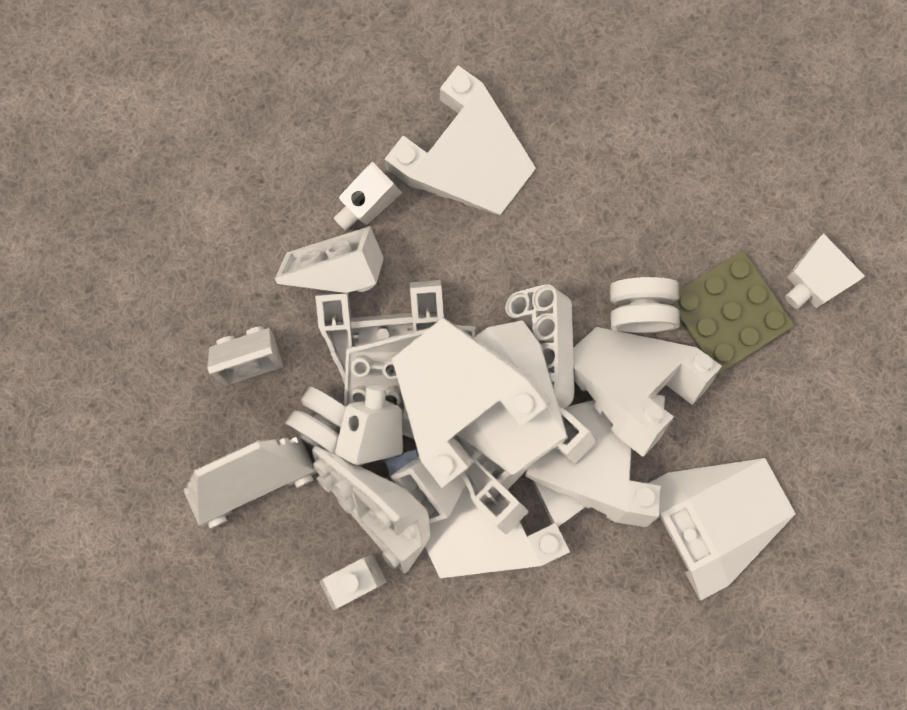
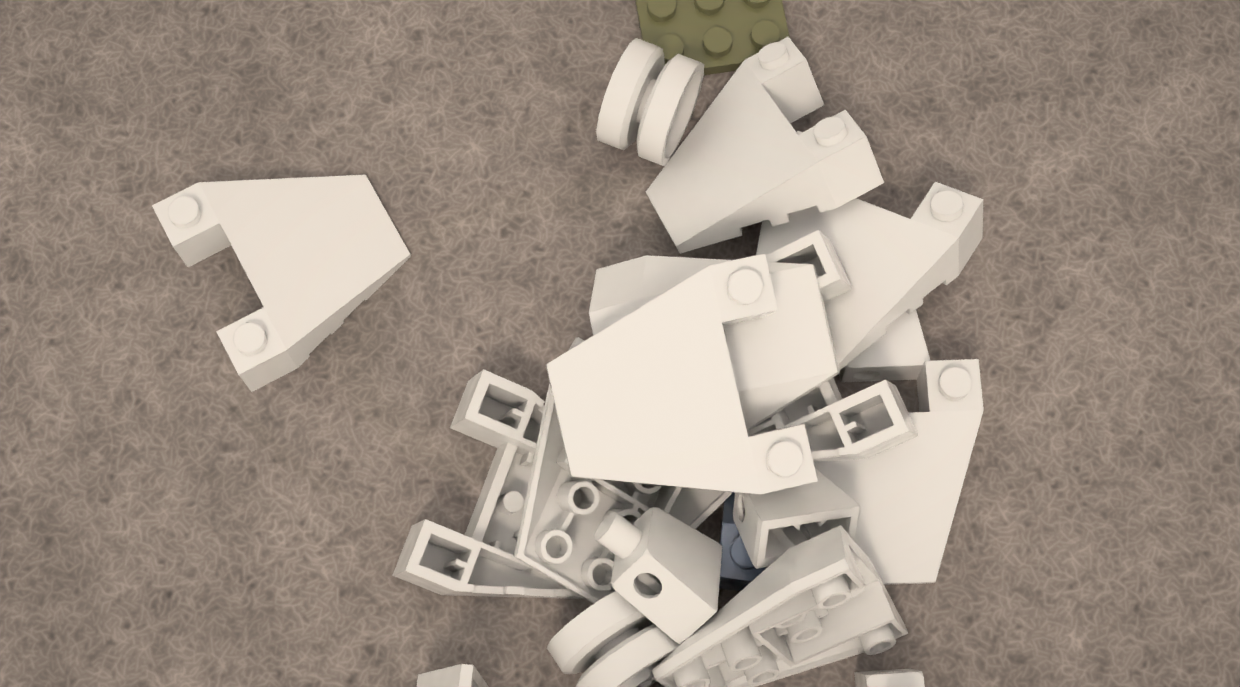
camera: 60 degrees left, 10 degrees down
(336, 264) = (365, 524): white slope -> none
(378, 193) = (274, 409): white torso -> none
(550, 318) = (609, 245): white beam -> none
(721, 518) = (1008, 135): white wedge -> none

